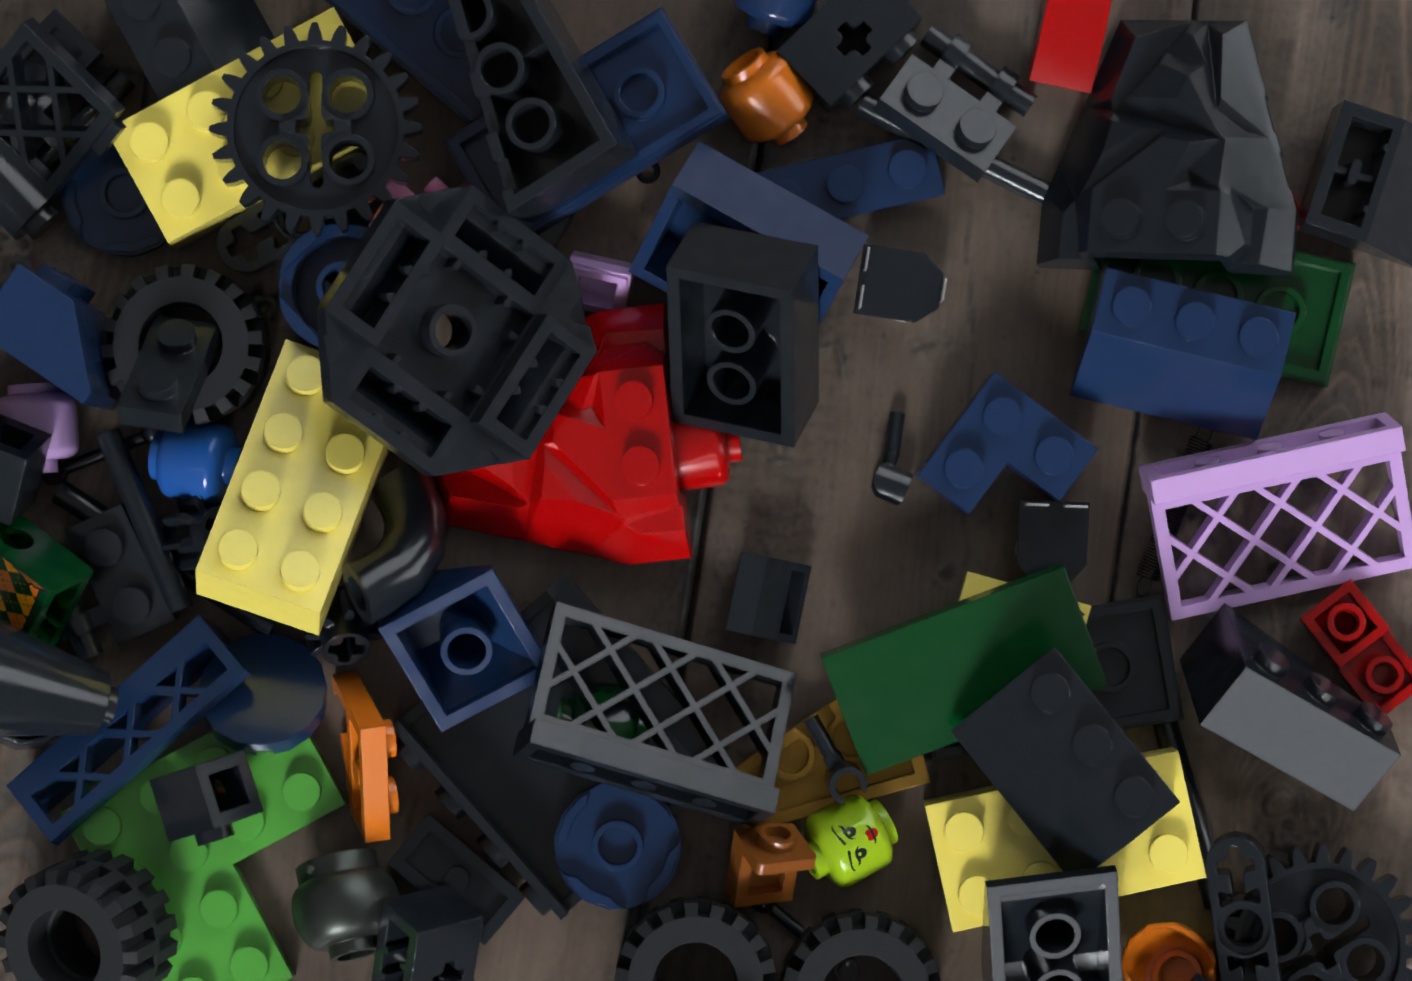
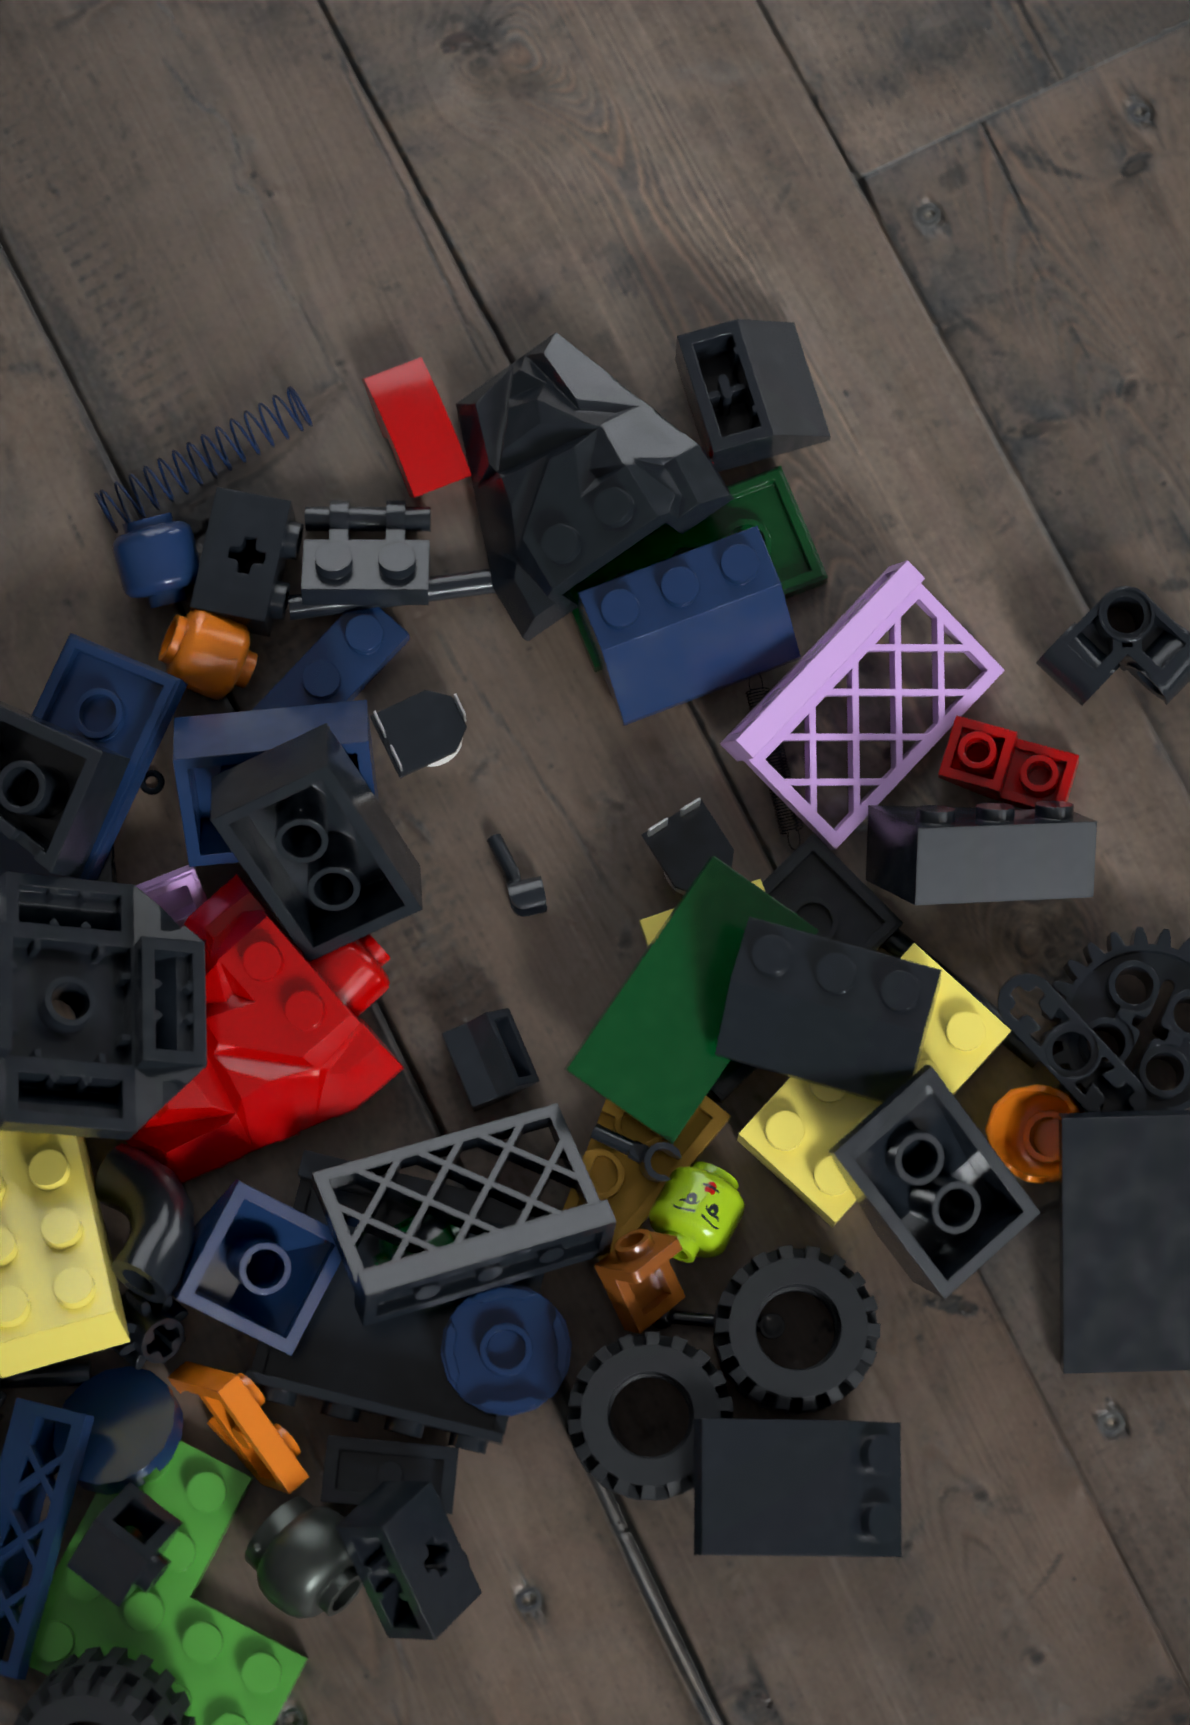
camera: 30 degrees left, 10 degrees down
(999, 431) = (594, 786): dark blue brick -> none

